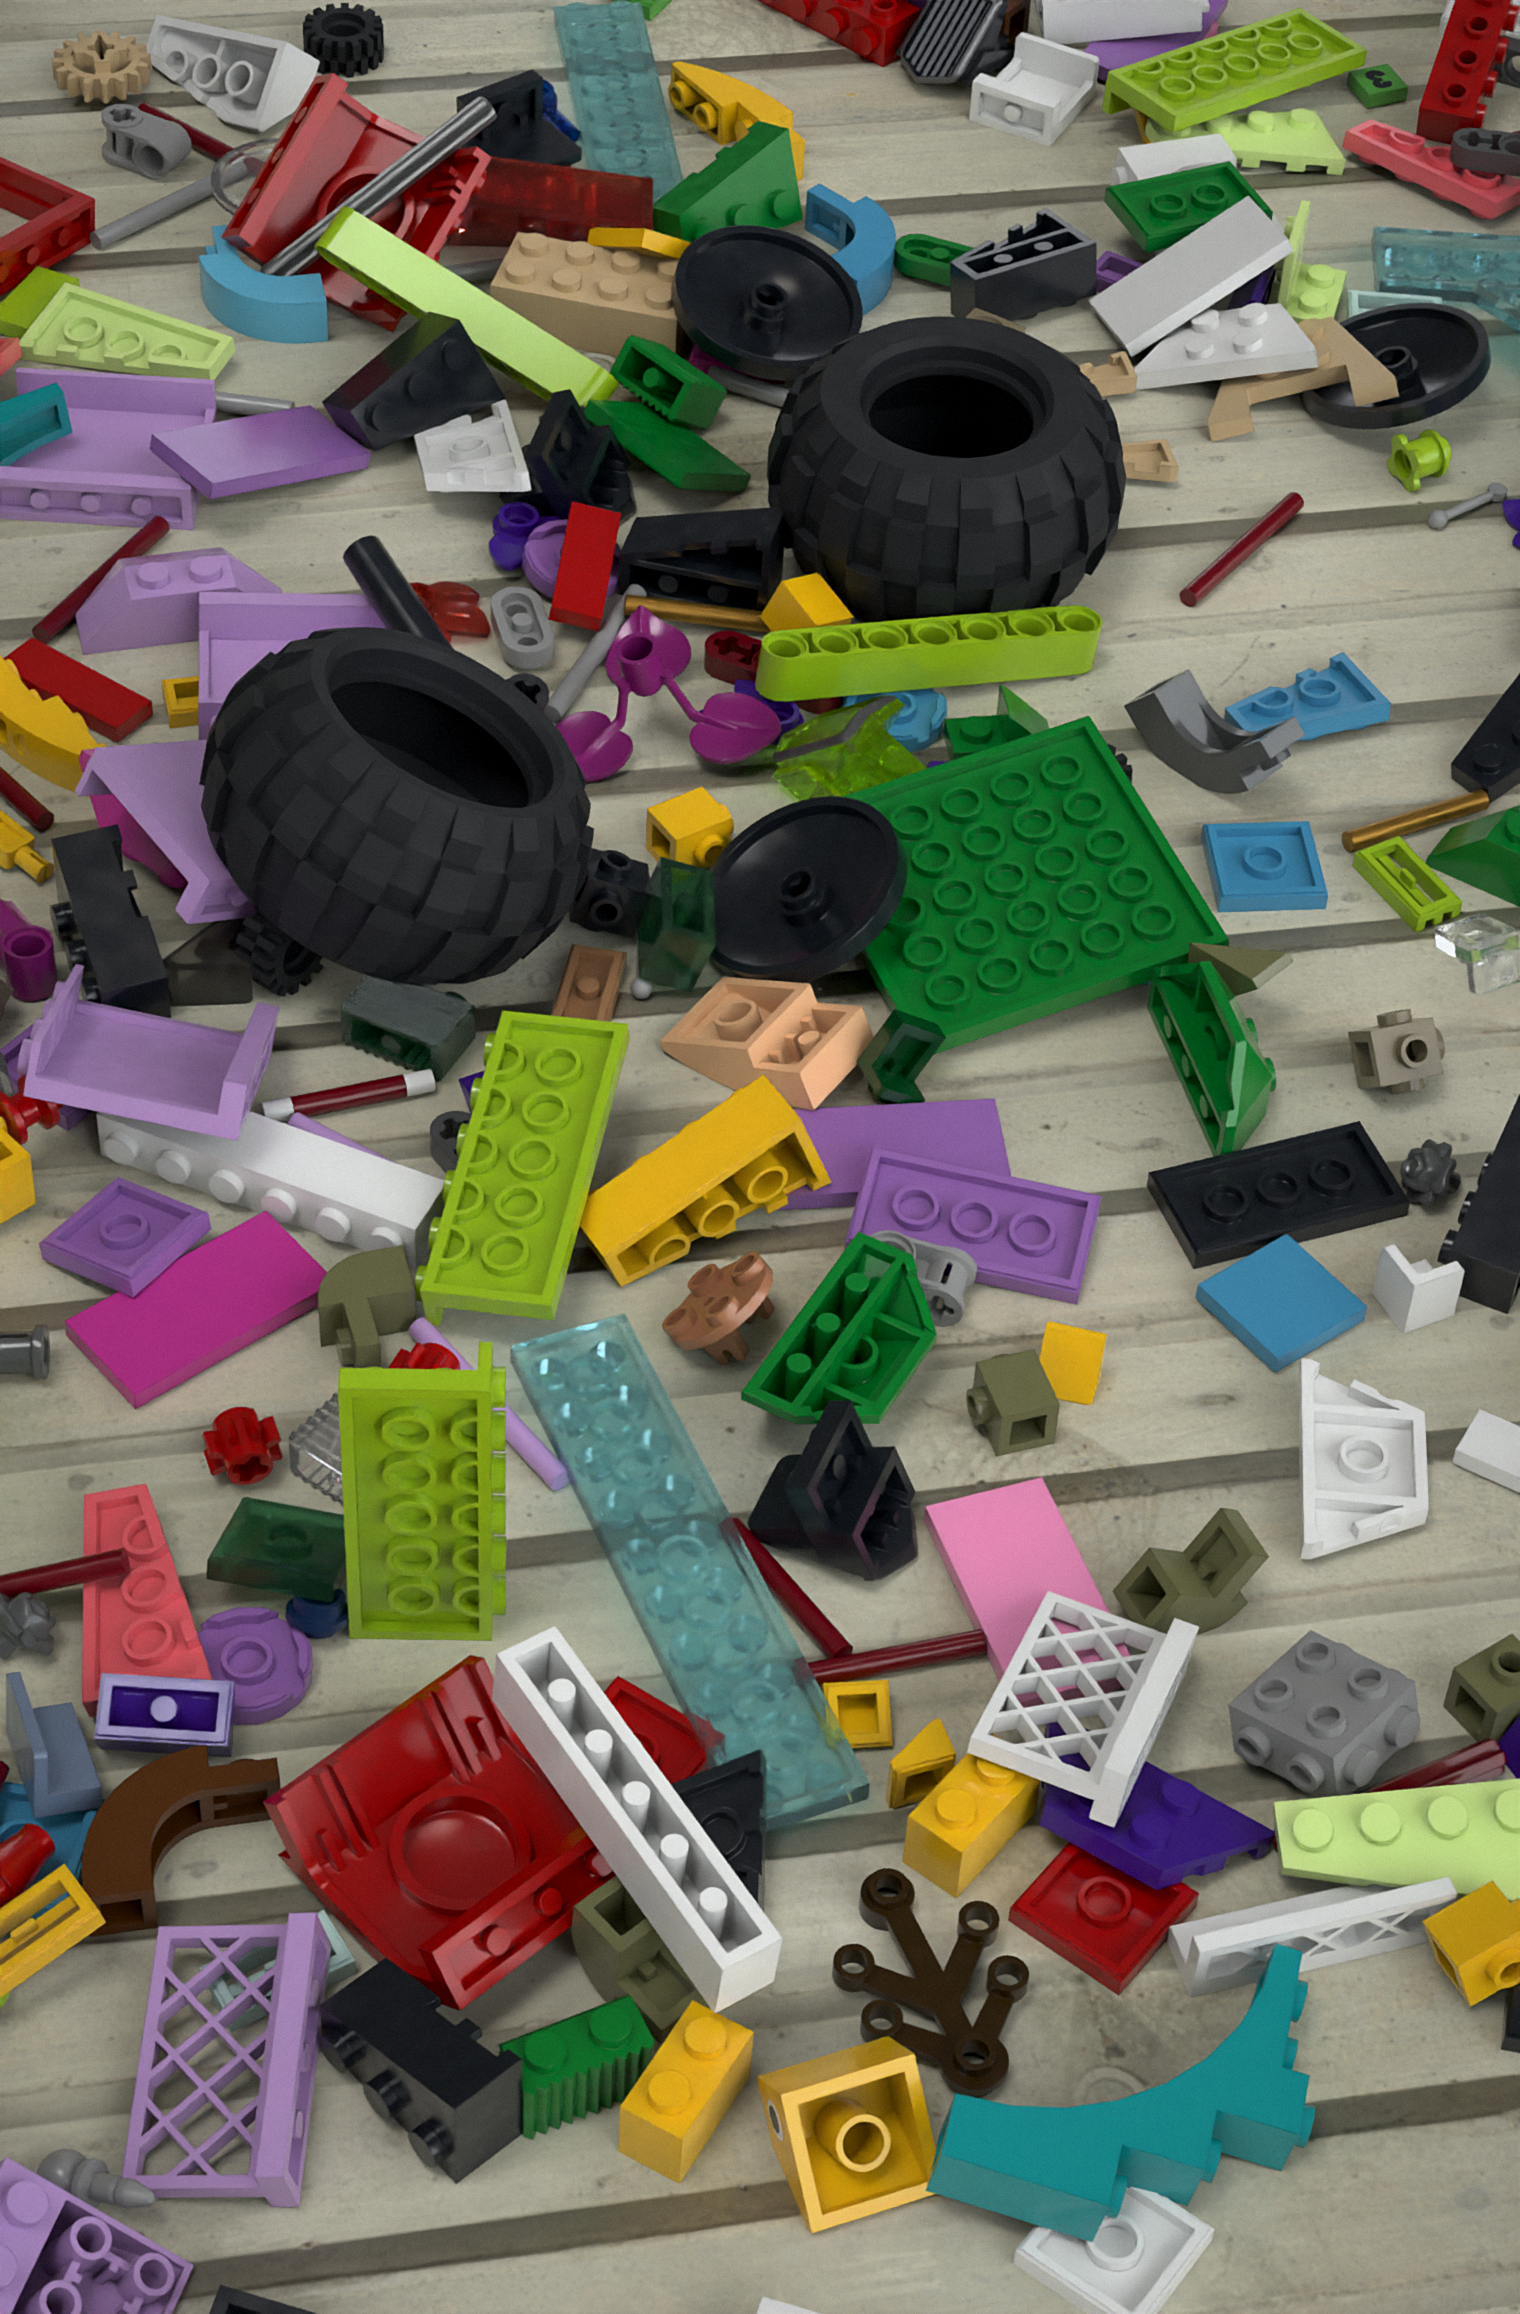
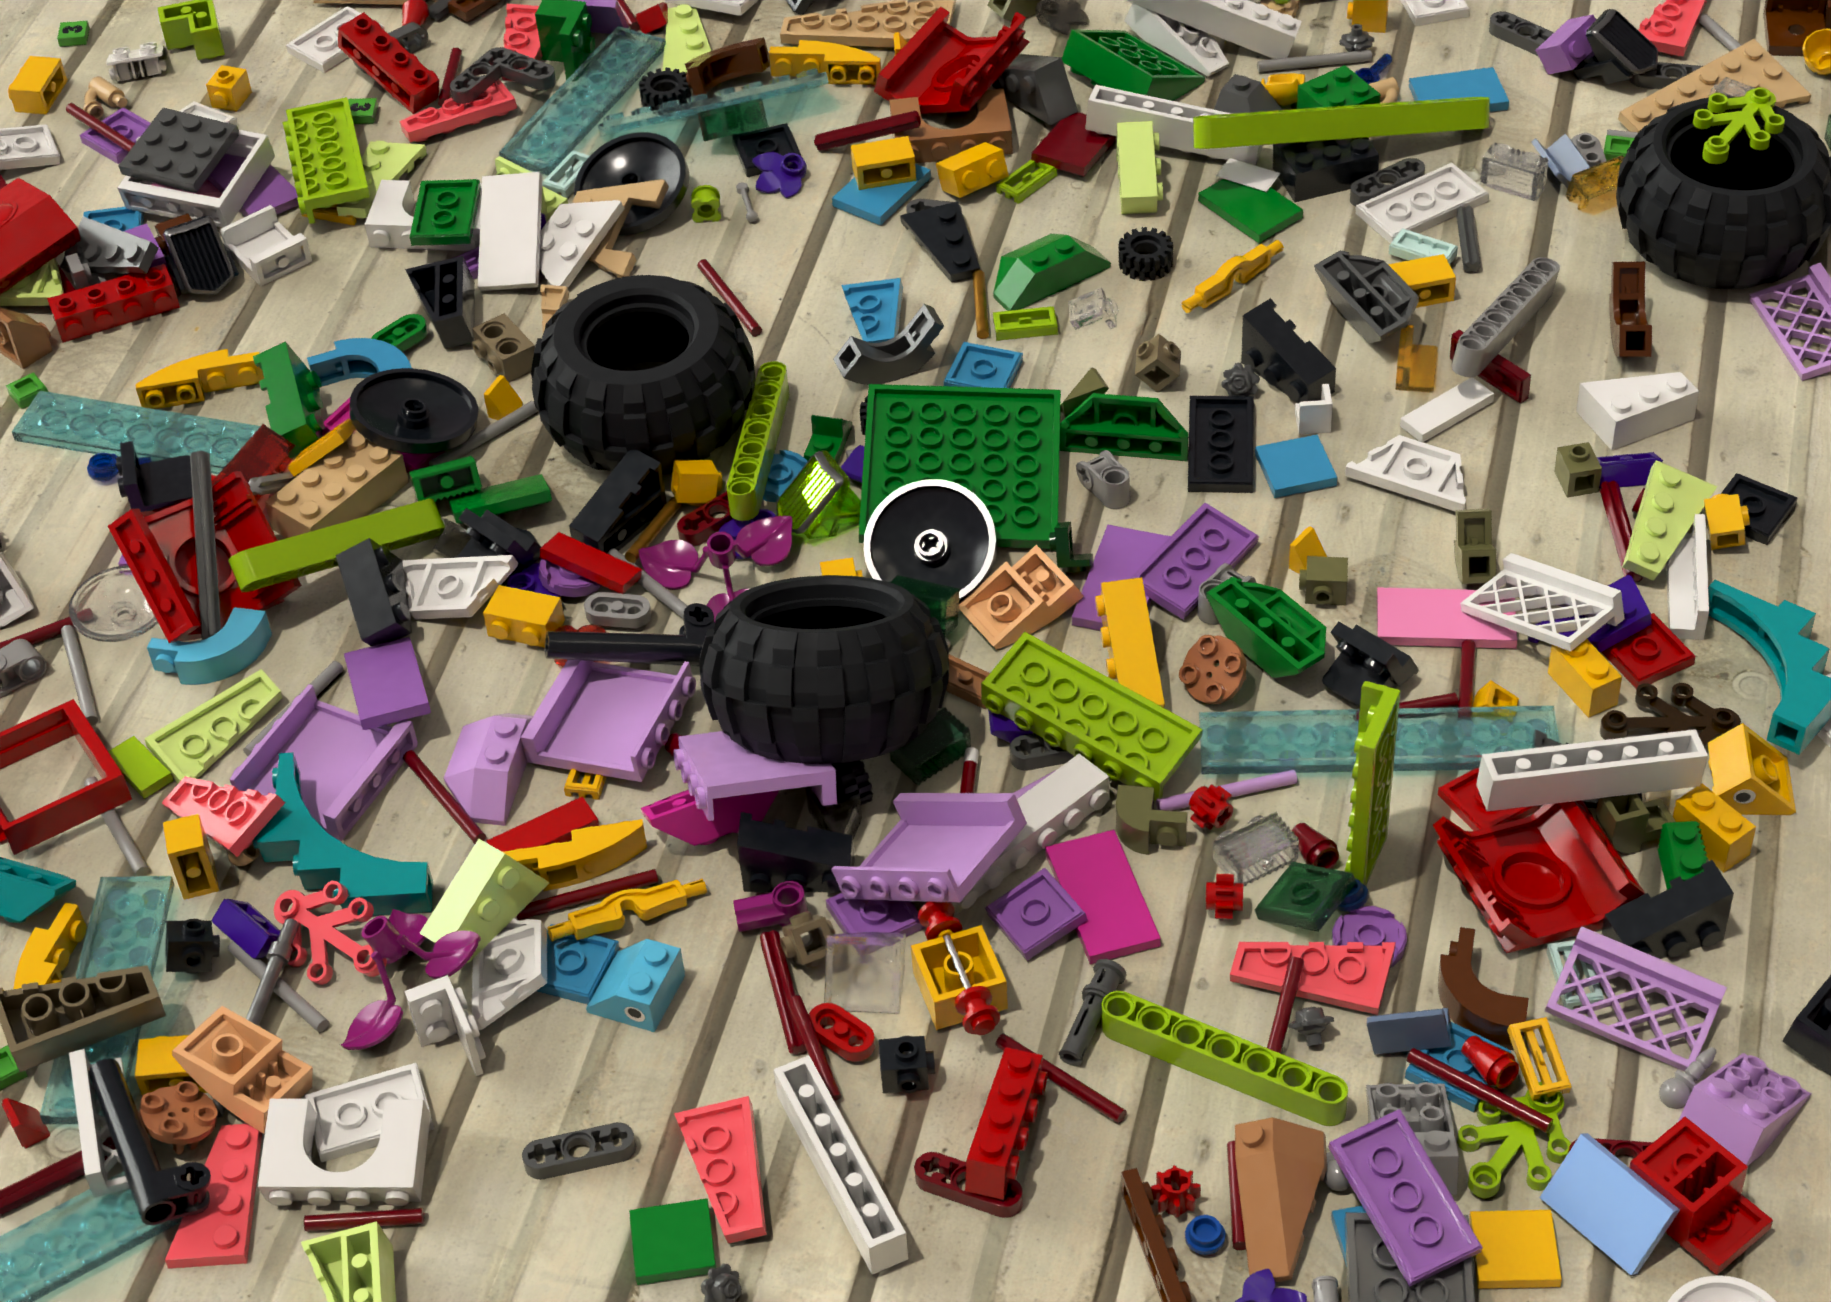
camera: 60 degrees left, 0 degrees up
(164, 1714) = (1404, 973): dark purple slope -> none
(455, 538) = (522, 615): none -> yellow brick
(541, 218) = (270, 483): none -> light grey axle
(920, 1766) = (1544, 683): yellow slope -> none
(1095, 1070) = (1106, 480): none -> light grey piece
(1324, 1717) = (1577, 529): light grey brick -> none

